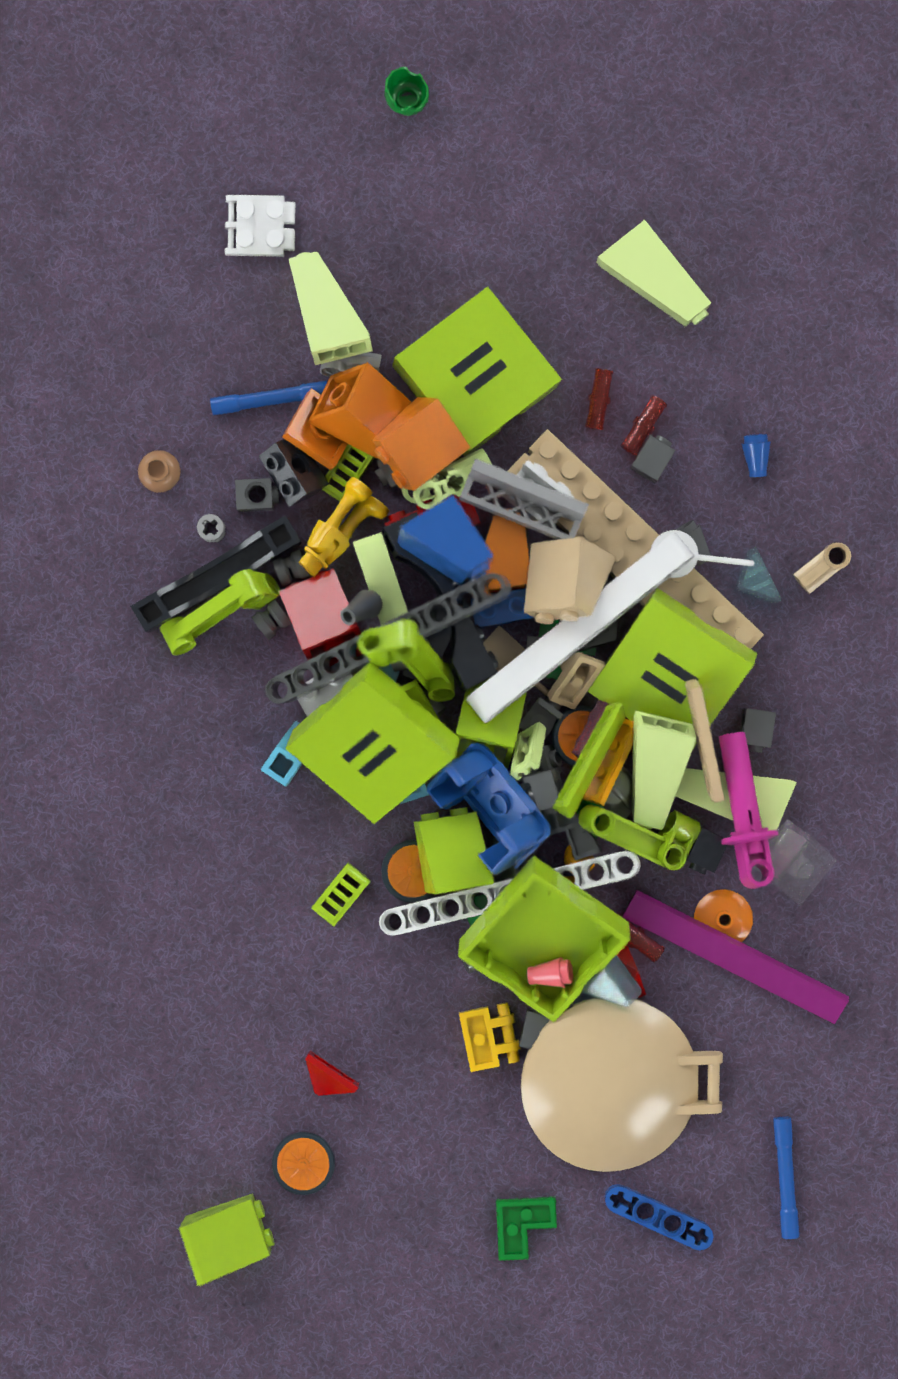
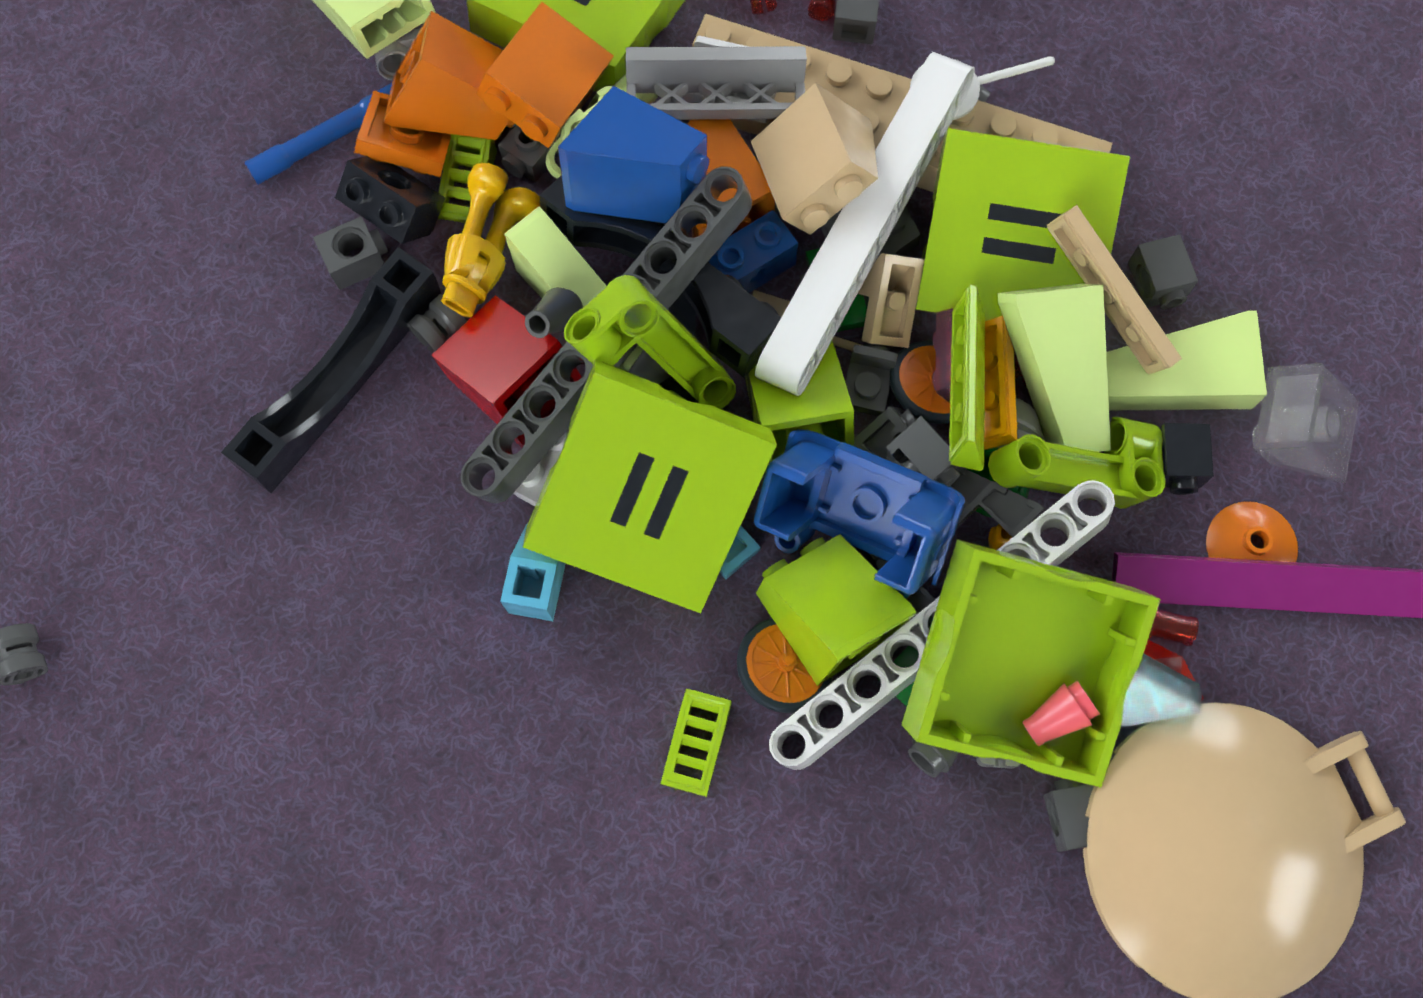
camera: 20 degrees left, 15 degrees down
(159, 471) = (208, 281): medium nougat piece -> none
(202, 529) = (308, 314): light grey bush -> none
(246, 590) = (377, 368): lime piece -> none
(266, 624) = (437, 402): dark grey wheel -> none
(480, 1040) = (1000, 870): yellow plate -> none
(528, 750) = (880, 410): yellowish green tile -> none
(749, 836) = (1241, 399): dark pink piece -> none
(756, 580) = (1064, 95): clear light blue slope -> none
(820, 568) = (1138, 45): tan piece -> none

